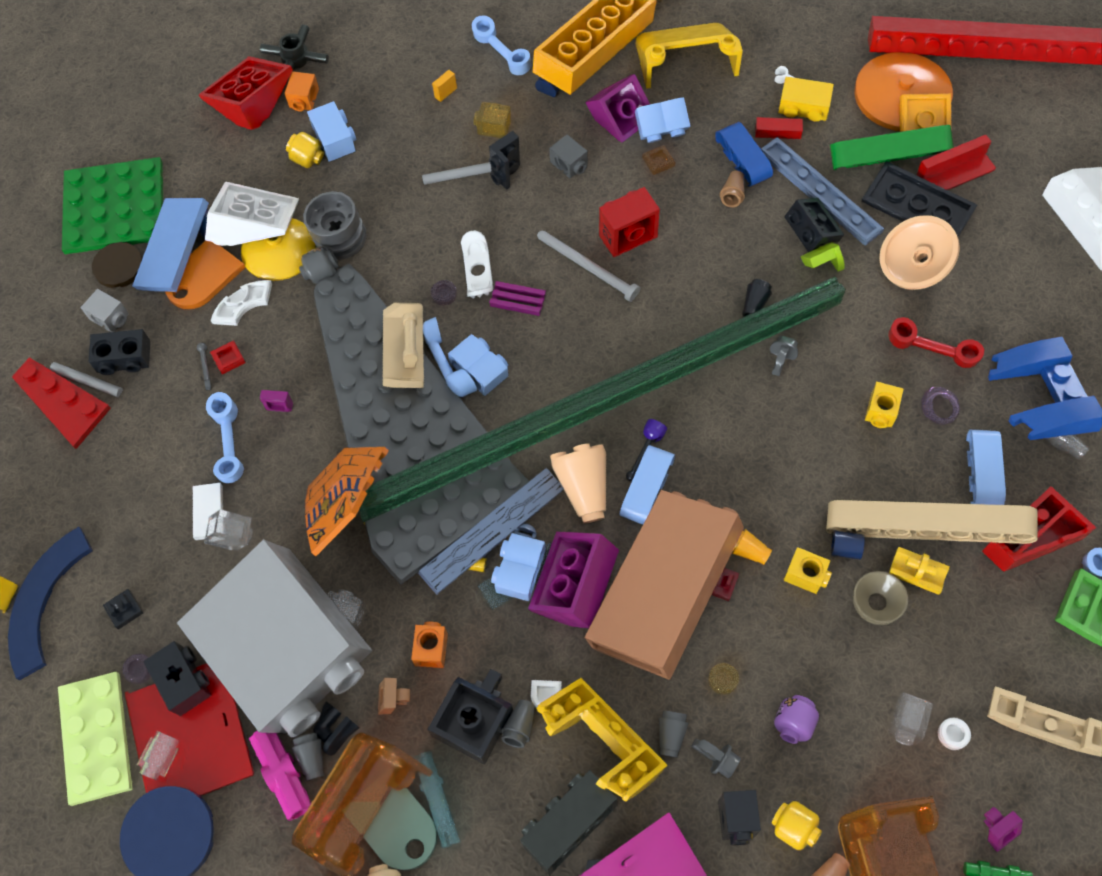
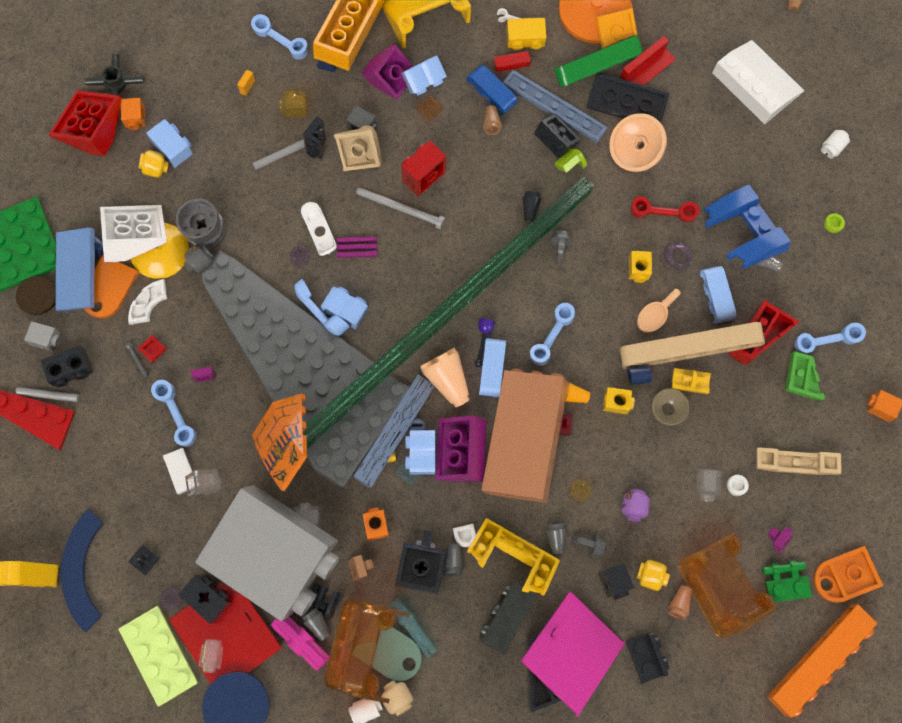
camera: 25 degrees left, 10 degrees up
(403, 346) = (285, 309): tan piece -> none
(555, 183) = (359, 148): none -> tan slope
(762, 444) = (564, 316): none -> light blue piece
(890, 472) = (656, 313): none -> light nougat piece

